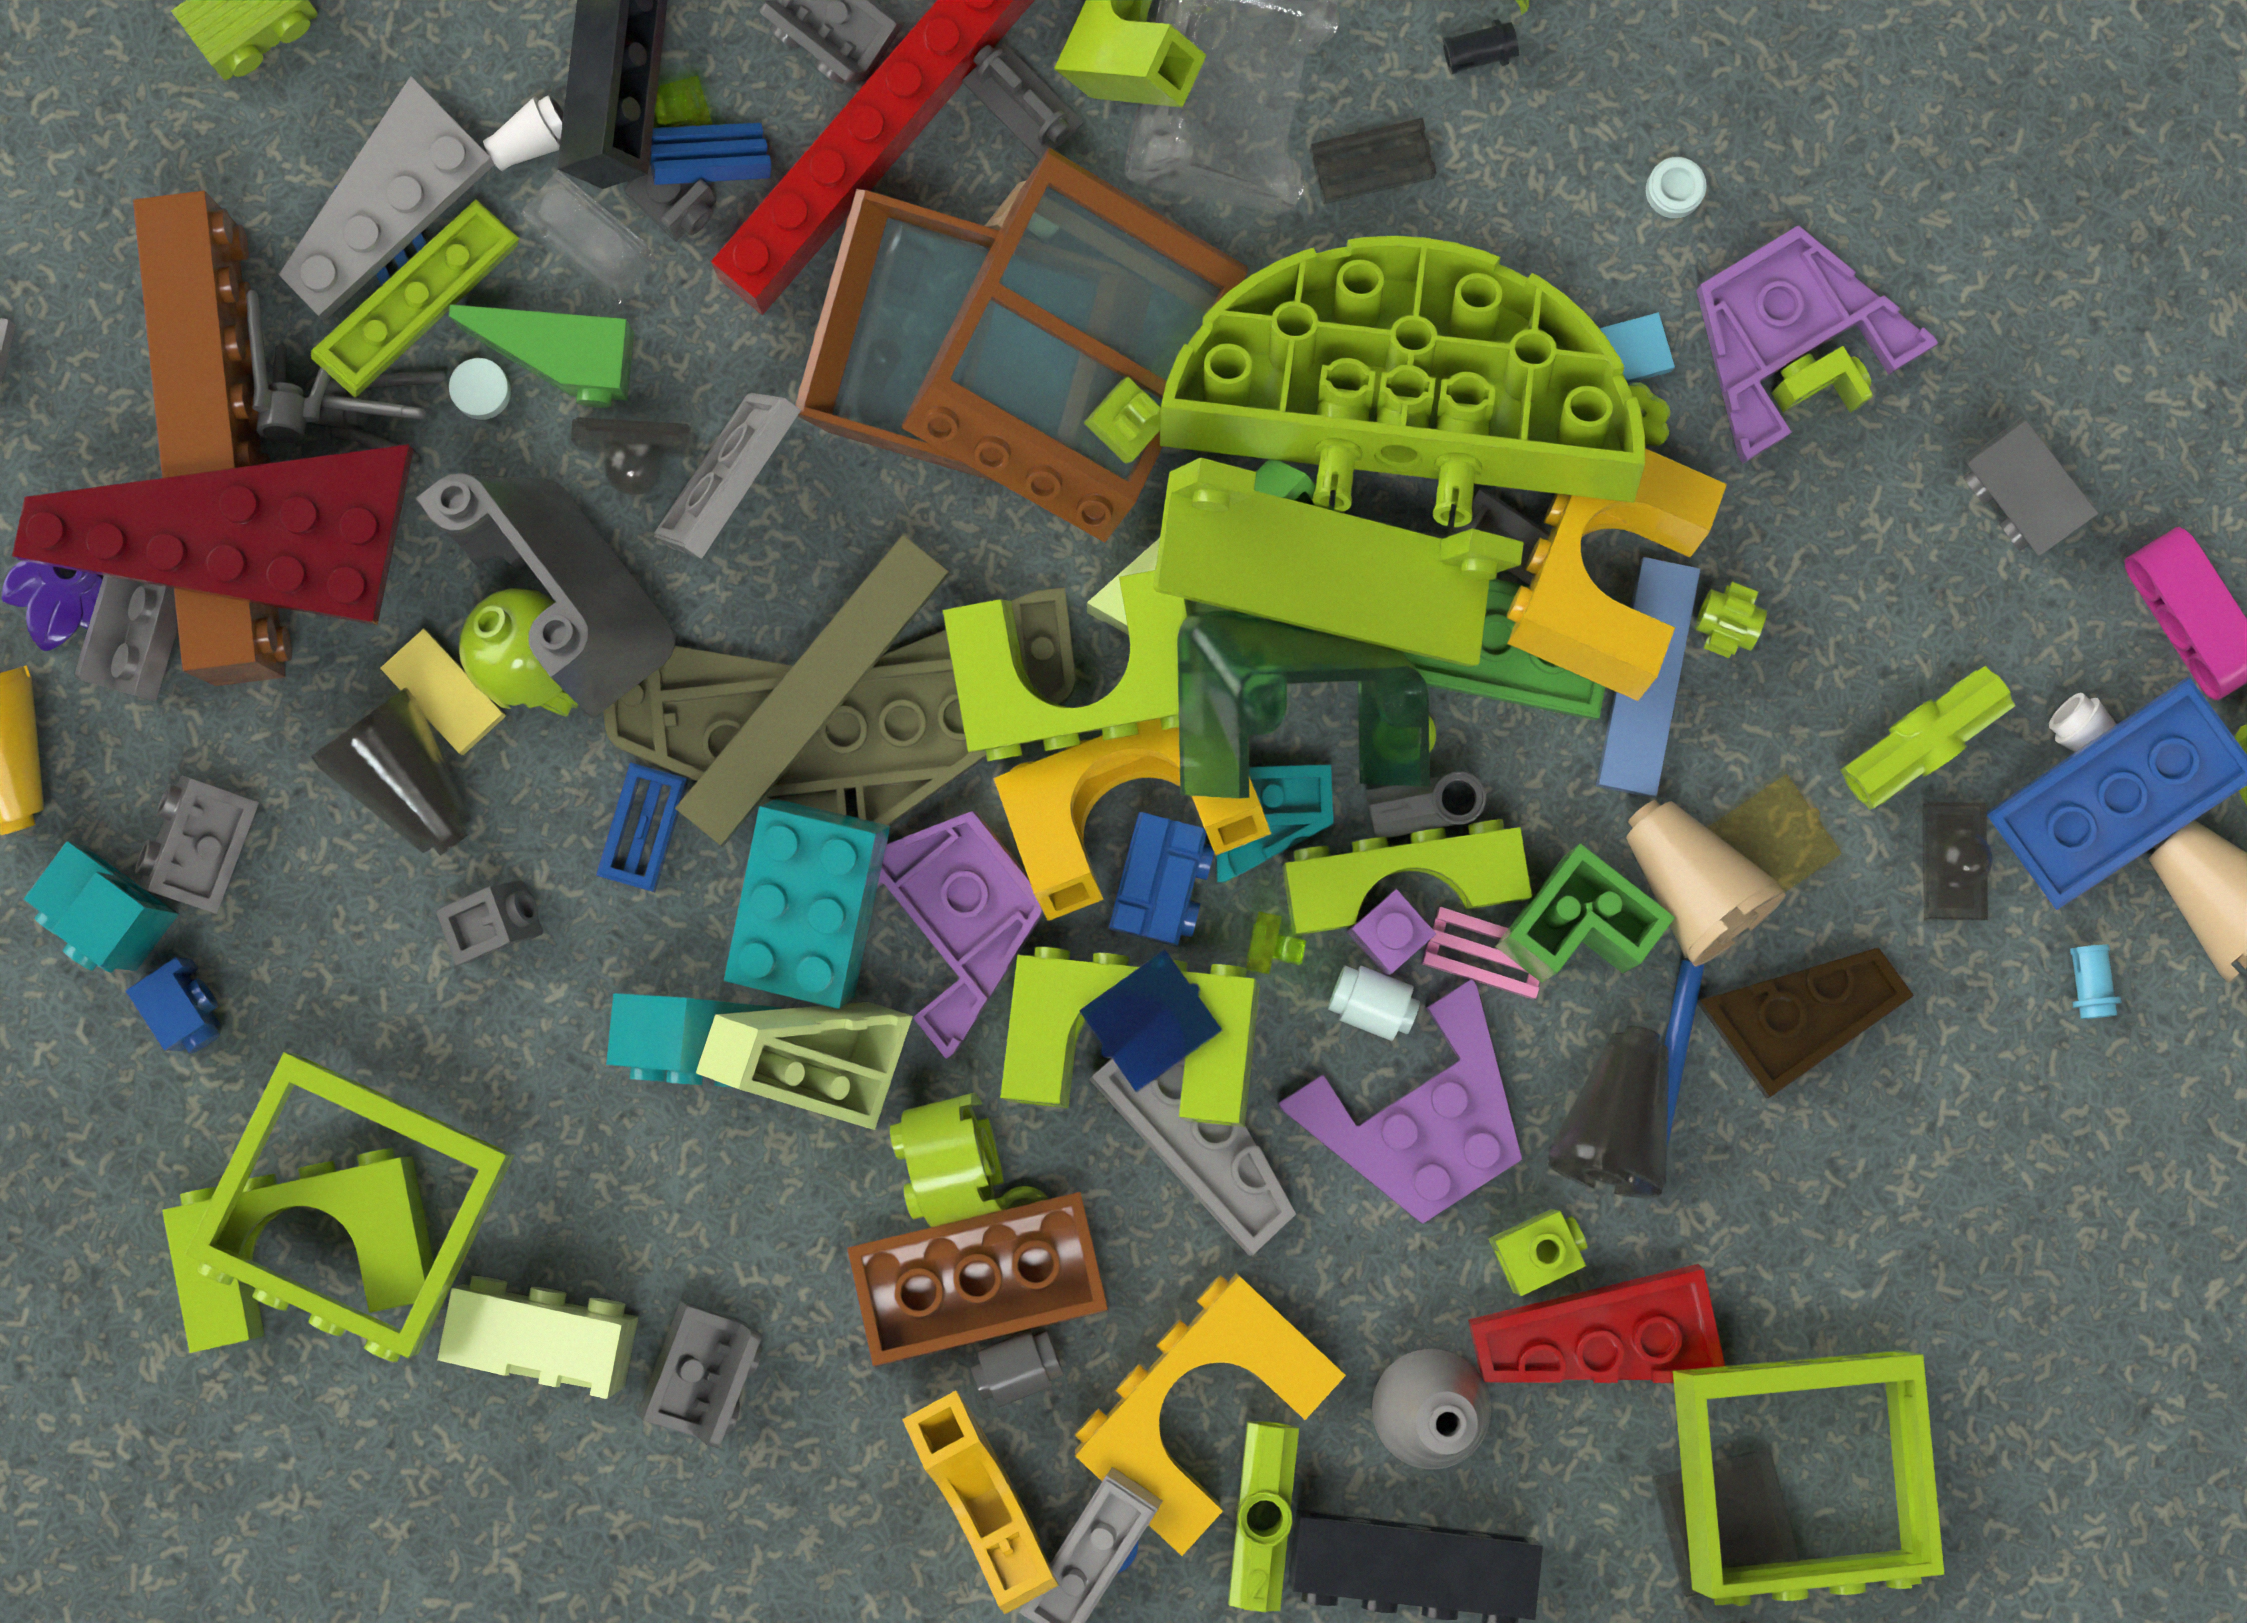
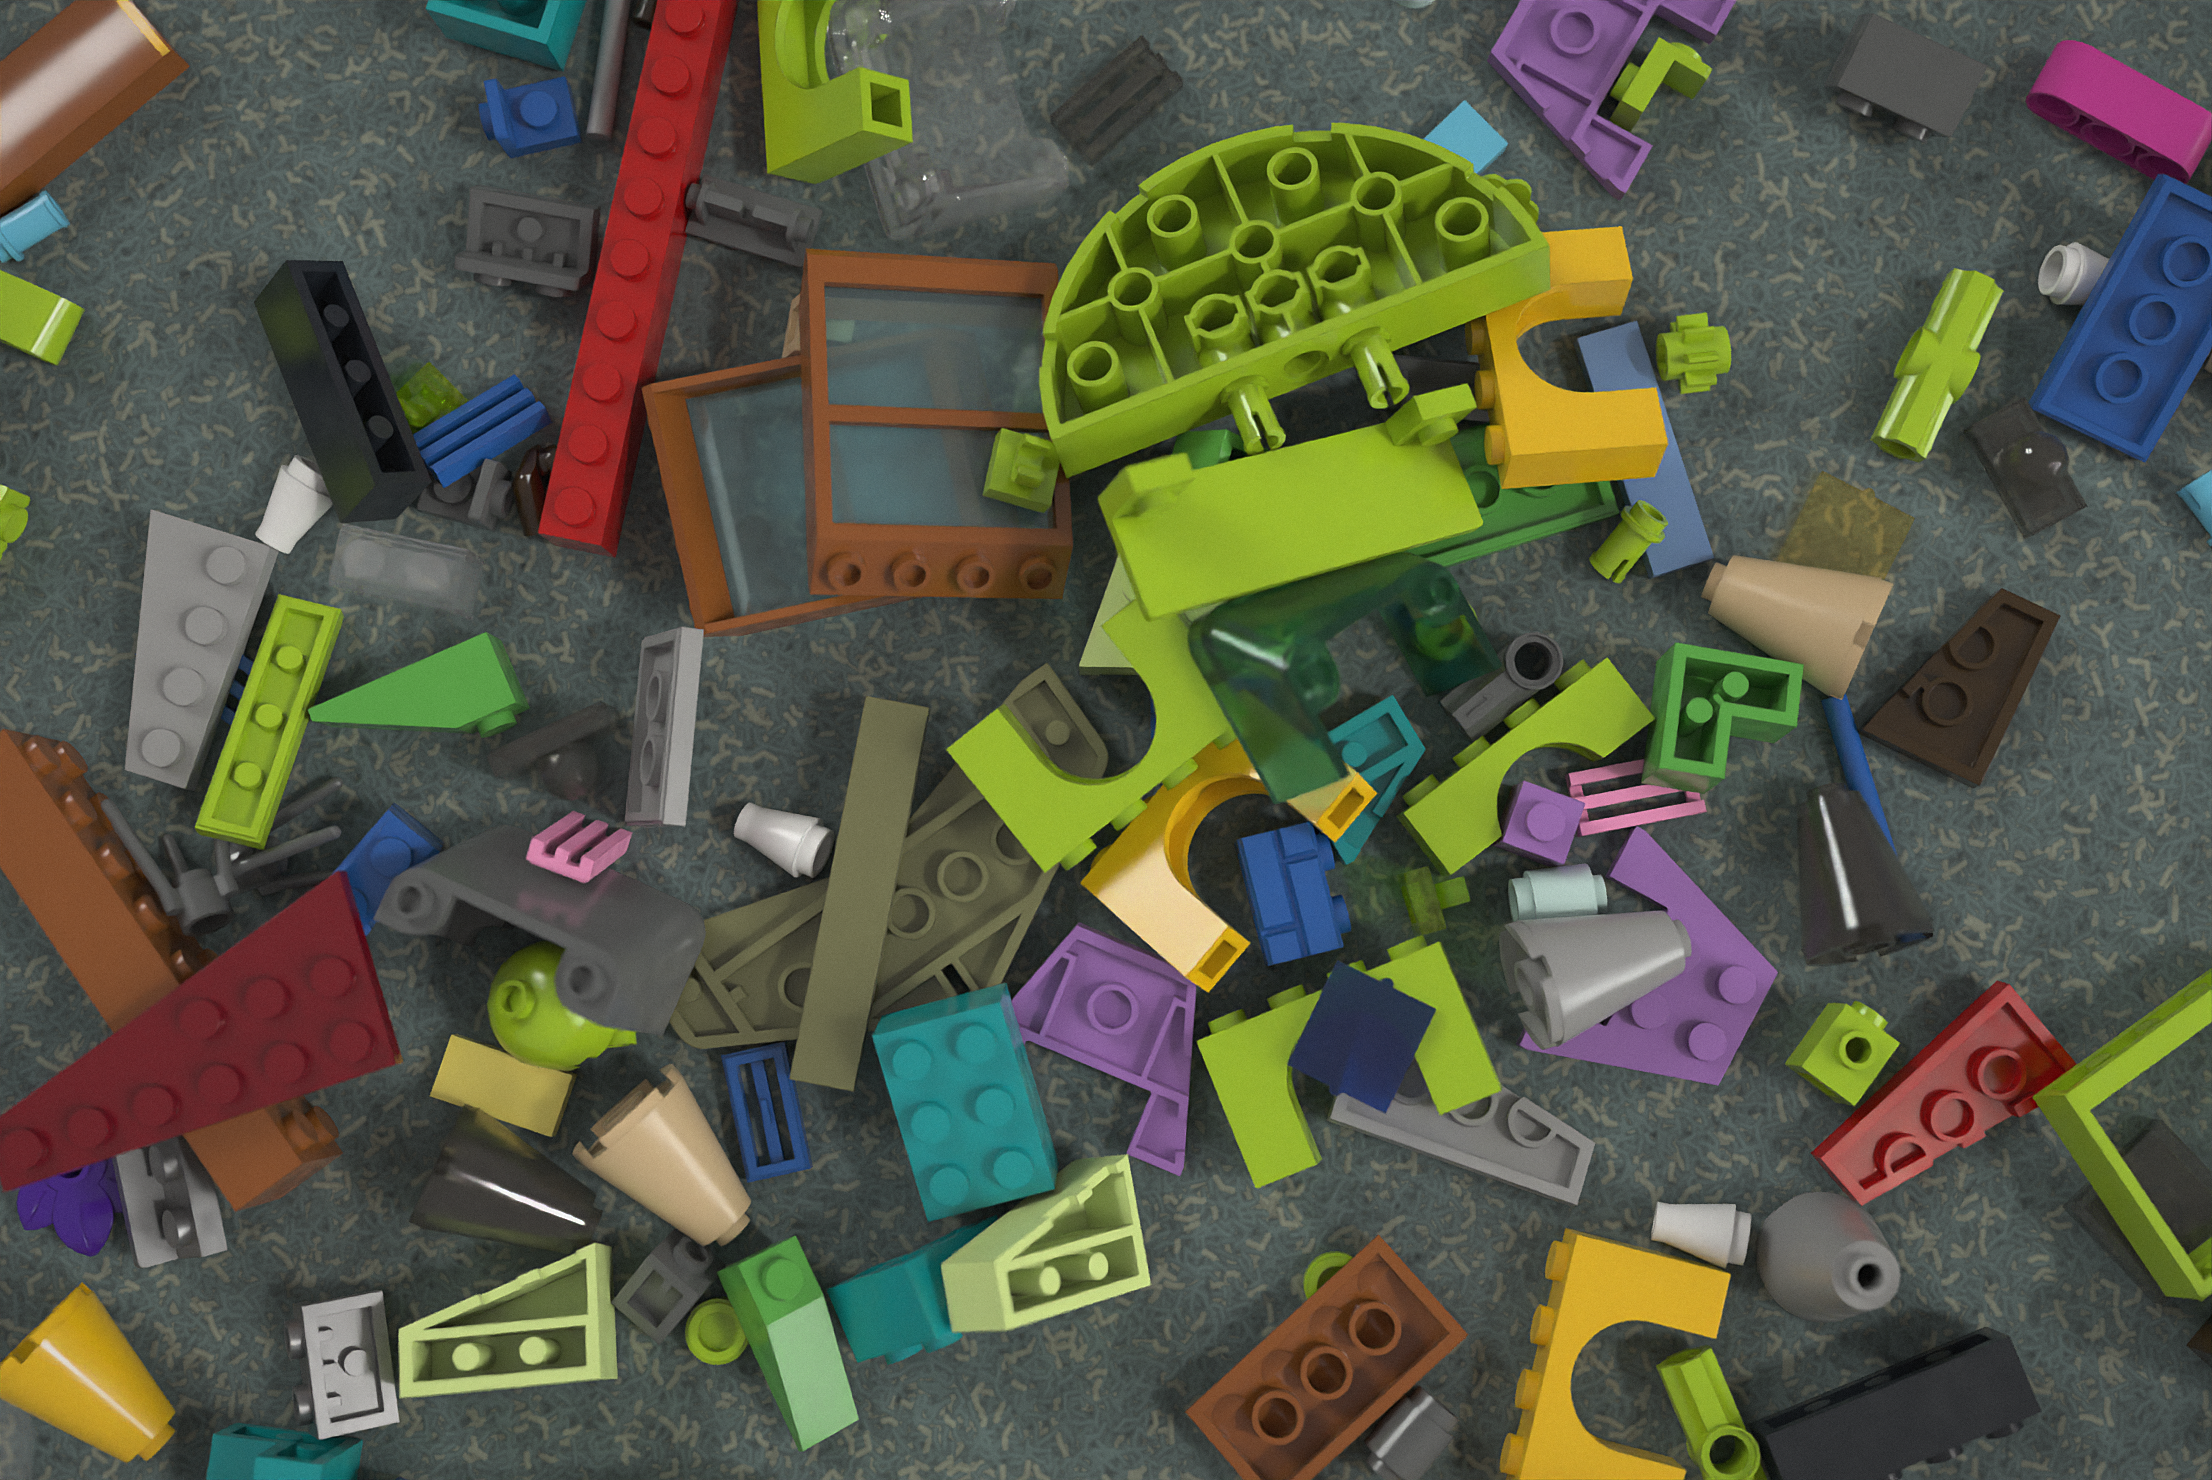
camera: 20 degrees left, 0 degrees up
(352, 896) = (527, 1333): none -> yellowish green wedge
(448, 452) = (382, 854): none -> blue brick
(479, 388) = (381, 773): light aqua tile -> none
(509, 981) = (715, 1332): none -> lime tile
(544, 823) = (669, 1160): none -> tan cone
(564, 1018) = (792, 1339): none -> bright green slope
(597, 523) = (567, 840): none -> bright pink tile
(725, 220) = (530, 486): none -> dark brown arm
(779, 618) = (788, 839): none -> white cone
(948, 1161) = (1238, 1276): lime brick -> none
(1346, 1334) = (1704, 1230): none -> white cone
(1366, 1066) = (1588, 967): none -> light grey cone
(1604, 739) = (1629, 540): none -> lime pin

